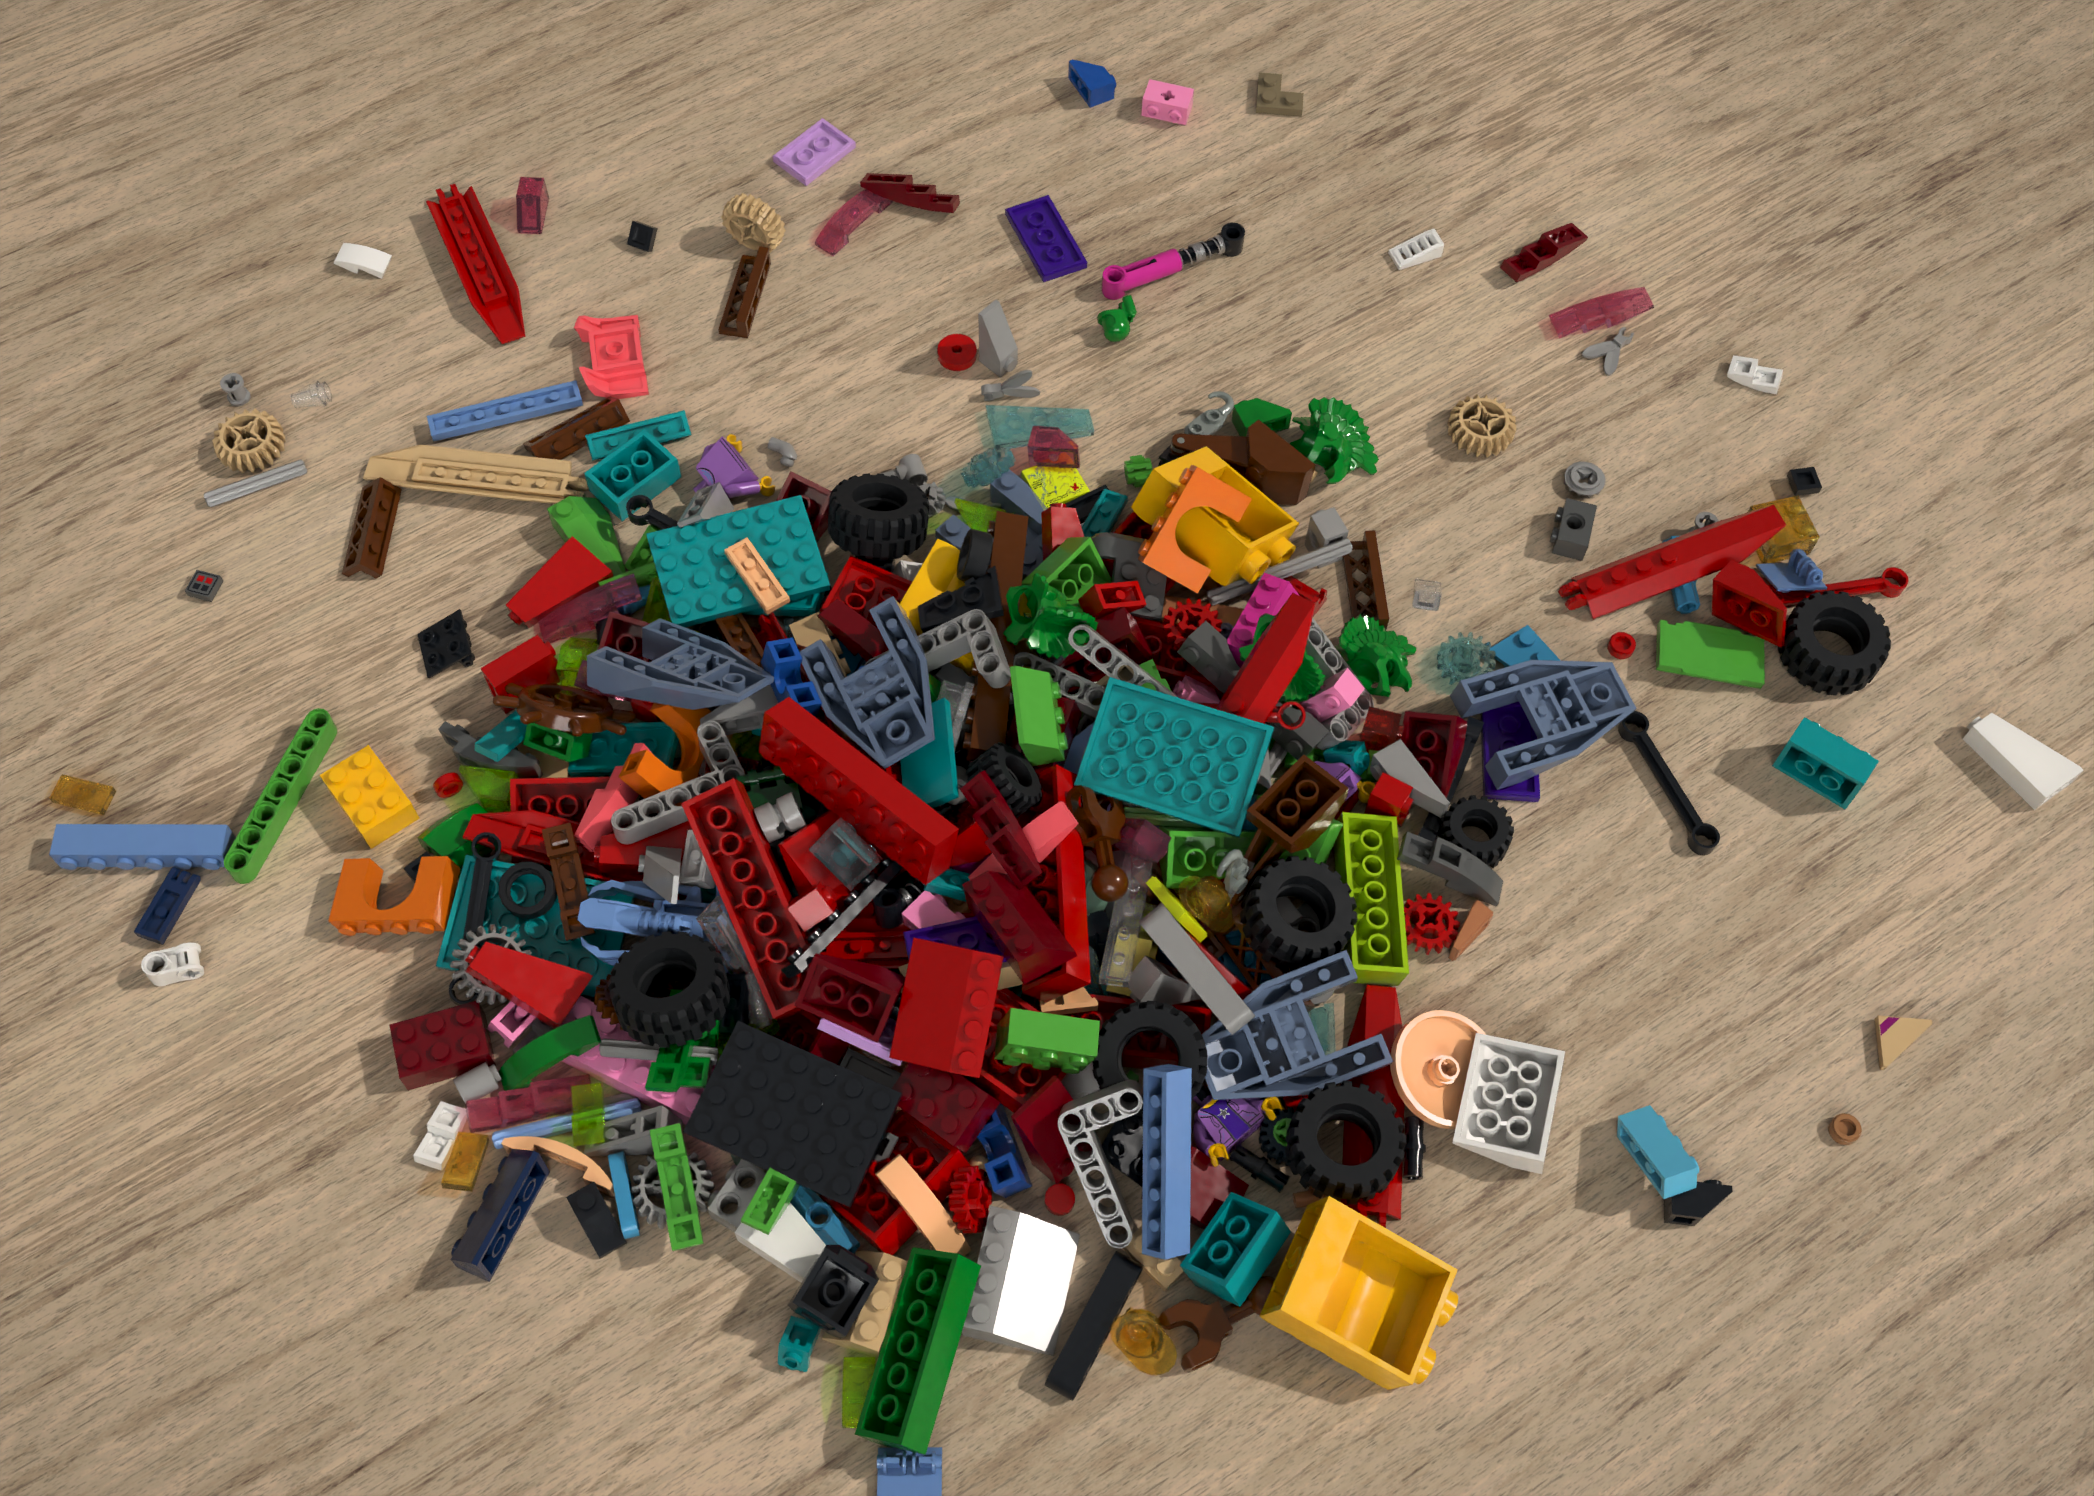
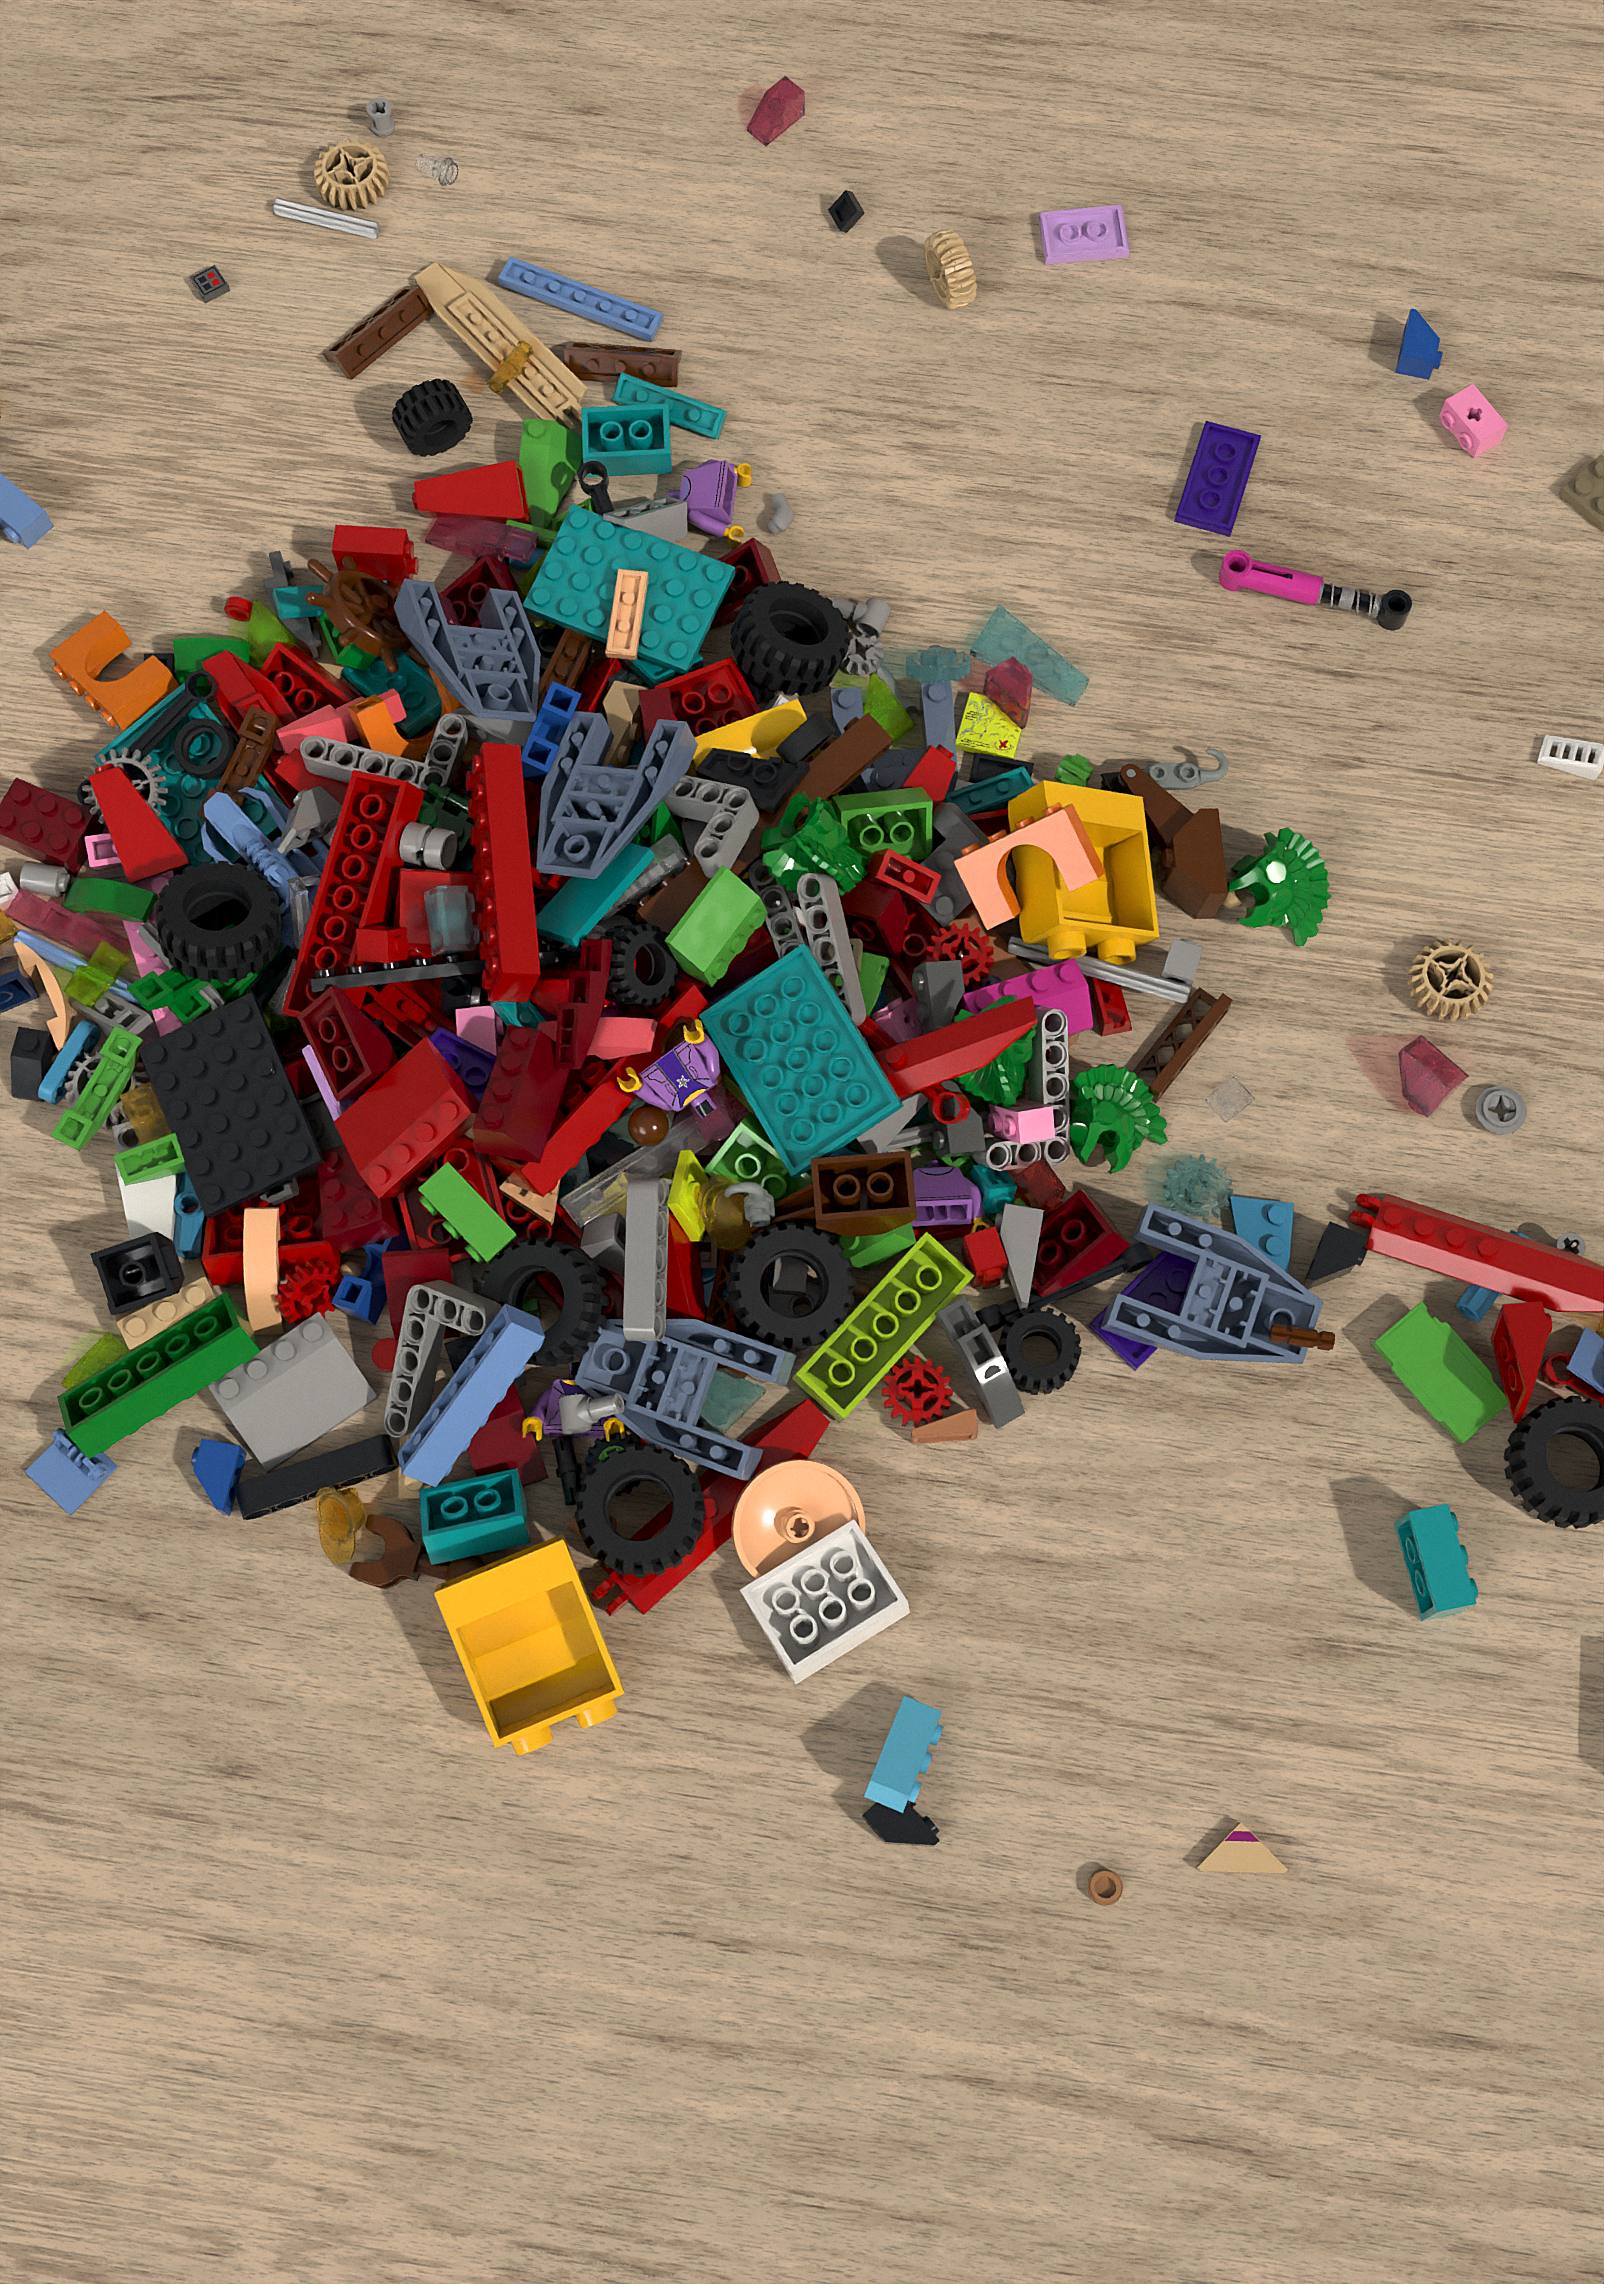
camera: 45 degrees right, 10 degrees up
(281, 807) = (96, 521): bright green beam -> none
(359, 257) = (590, 64): white slope -> none
(369, 796) = (171, 571): yellow brick -> none
(446, 644) = (347, 482): black hinge -> none
(477, 553) = (432, 417): none -> black tyre
(479, 262) = (682, 135): red hinge -> none
(502, 484) = (510, 367): none -> clear yellow pin
(571, 657) = (436, 568): clear neon green slope -> none
(614, 356) = (717, 312): coral piece -> none
(729, 1178) = (145, 1114): none -> clear yellow plate
(750, 297) = (891, 339): reddish brown fence -> none
(797, 1344) = (83, 1292): teal bracket -> none
(848, 218) = (1054, 325): clear pink slope -> none
(903, 191) = (1124, 334): dark red slope -> none
(957, 343) = (1027, 521): red piece -> none
(996, 340) = (1058, 547): light grey slope -> none
(1010, 387) = (1037, 603): light grey piece -> none
(1022, 1383) = (219, 1471): none -> blue slope
(1112, 823) = (680, 1075): none -> torso
(1117, 321) = (1197, 611): green piece -> none
(1240, 1114) = (580, 1411): none -> light grey pin
(1272, 415) = (1240, 808): green slope -> none
(1414, 1148) = (709, 1567): black pin -> none
(1530, 490) = (1427, 1076): none -> clear pink slope
(1574, 529) = (1424, 1164): dark grey brick -> none
(1581, 632) = (1335, 1255): none -> black slope
(1621, 645) = (1366, 1295): red tile -> none
(1623, 691) = (1302, 1337): none -> reddish brown axle
(1669, 784) = (1272, 1455): black piece -> none

